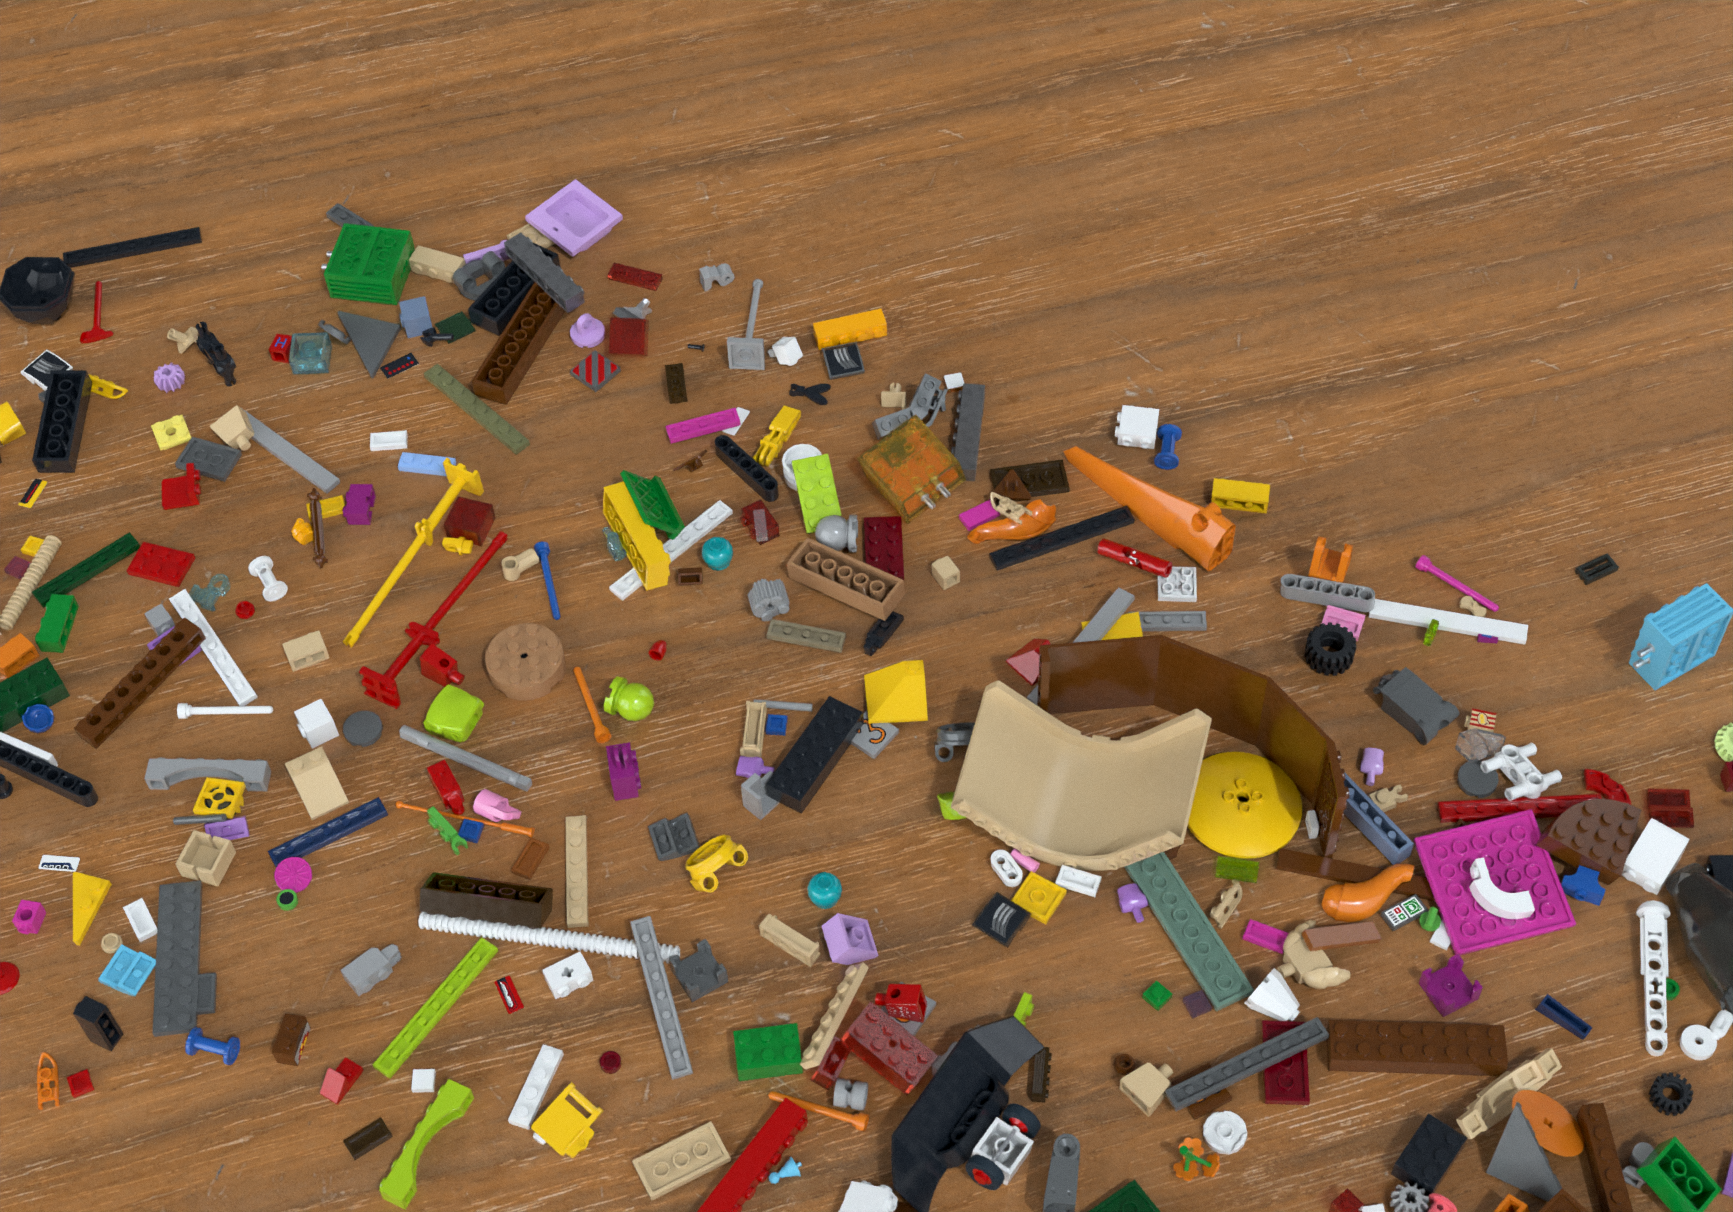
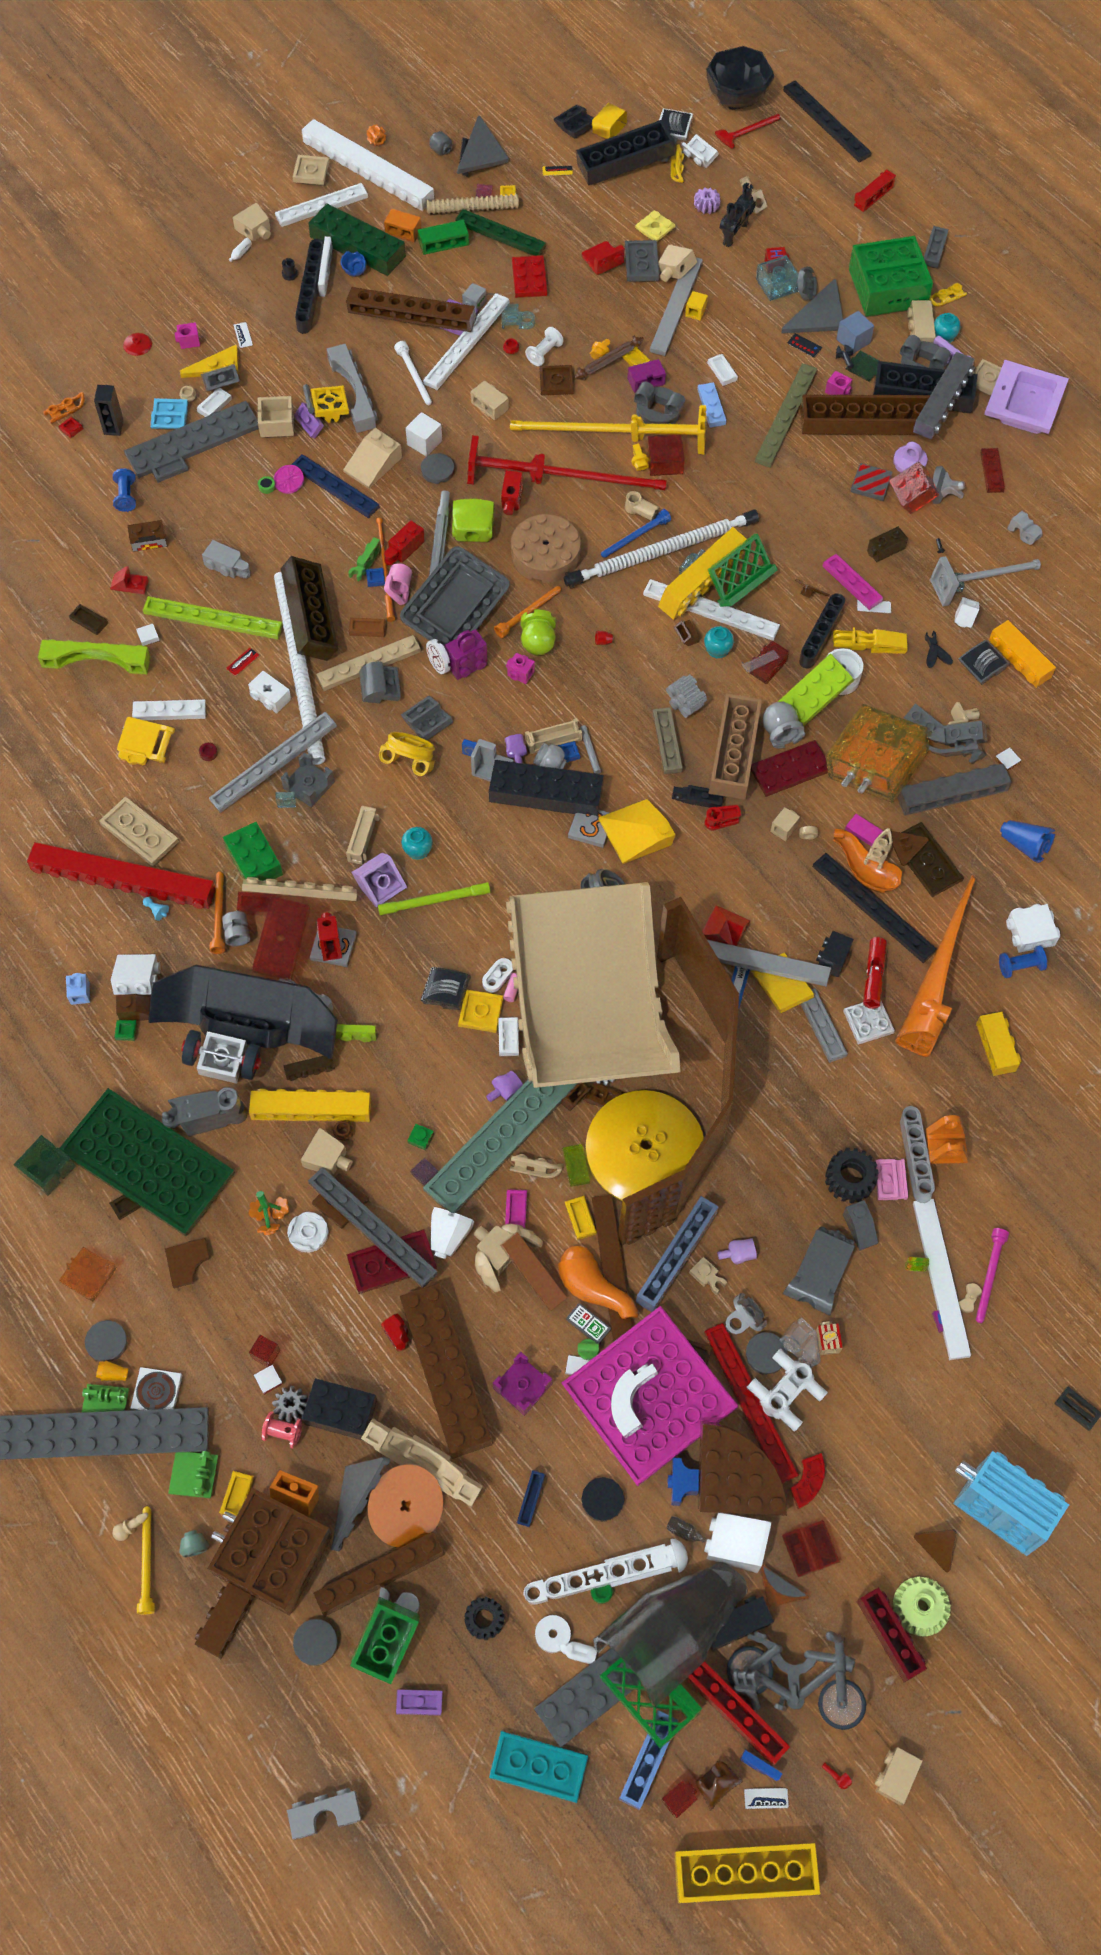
camera: 65 degrees right, 10 degrees up
(100, 360) = (700, 151): none -> white bracket
(114, 899) = (220, 377): none -> flat silver brick
(250, 240) = (875, 190): none -> red container
(298, 432) = (696, 305): none -> yellow brick
(313, 585) = (556, 380): none -> reddish brown tile
(412, 224) = (943, 295): none -> yellow piece
(416, 493) = (648, 394): none -> dark grey piece
(454, 244) = (947, 326): none -> teal piece
(470, 353) = (839, 384): none -> dark pink brick
(549, 761) = (454, 597): none -> dark grey wedge
(579, 566) = (660, 548): none -> white hose
(611, 798) = (438, 656): none -> white tile
(611, 866) = (379, 683): none -> dark grey brick
(661, 730) = (520, 668): none -> dark pink brick
(712, 999) = (285, 799): none -> clear light blue tile
(734, 806) = (468, 747): none -> blue tile
(781, 739) = (550, 756): none -> light grey piece
(887, 934) = (474, 890): none -> lime piece
(914, 620) = (722, 816): none -> red piece
(963, 558) = (808, 832): none -> tan tile
(1047, 395) = (1028, 838): none -> blue cone
(1088, 1081) = (310, 1106): none -> yellow brick
(1101, 580) = (835, 952): none -> black brick
(1293, 884) = (580, 1218): none -> yellow tile
(1362, 1081) = (396, 1331): none -> red rock
(1378, 660) = (861, 1225): none -> dark grey slope
(1439, 777) = (748, 1313): none -> light grey tile
(1580, 958) = (602, 1499): none -> black tile
(1626, 901) = (684, 1530): none -> clear smoke piece
(1694, 710) = (939, 1546): none -> reddish brown piece
(1702, 845) = (779, 1590): none -> tile

